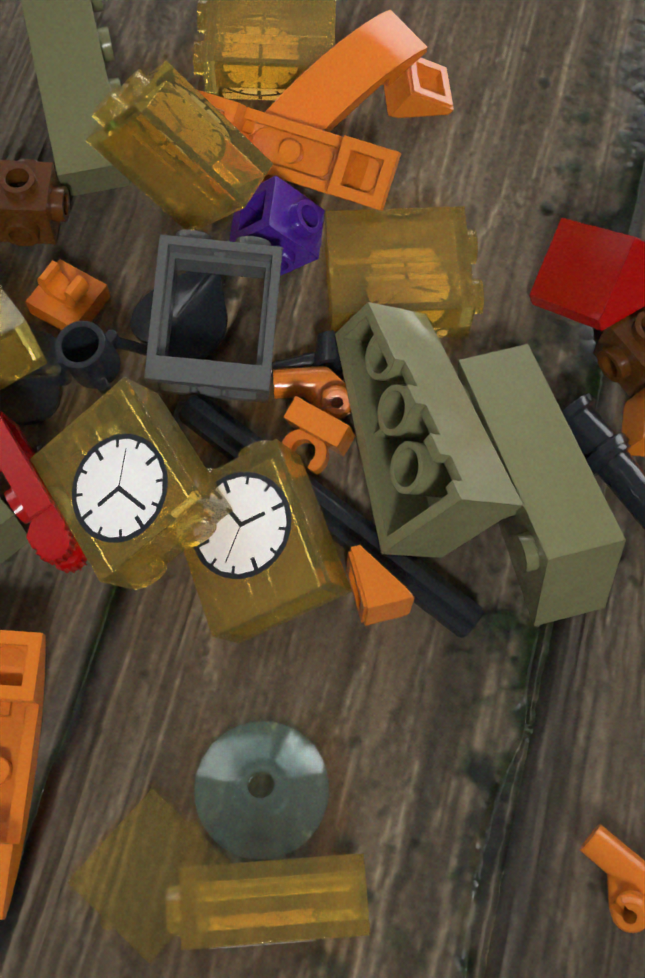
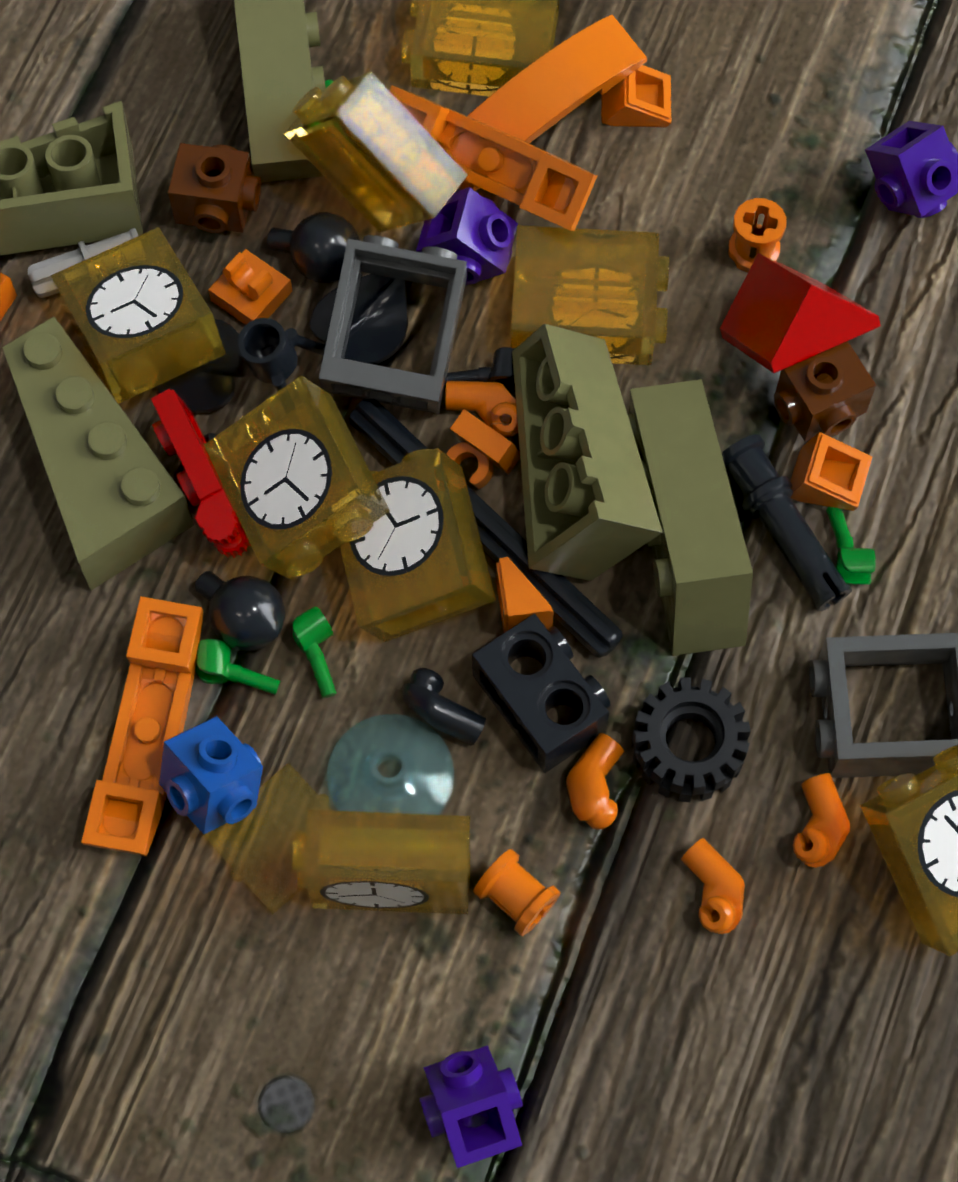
camera: 10 degrees right, 0 degrees up
(63, 691) = (215, 668): none -> green hand
(68, 821) = (210, 775): none -> blue brick
(88, 629) = (243, 610): none -> black piece
(128, 249) = (316, 245): none -> black piece
(160, 643) = (308, 632): none -> green hand
(305, 715) = (438, 711): none -> black arm
(396, 693) = (527, 698): none -> black brick
(415, 913) = (516, 892): none -> orange bush
(471, 779) = (588, 784): none -> orange arm
(567, 198) = (750, 234): none -> orange bush
(601, 693) = (695, 703): none -> black tyre

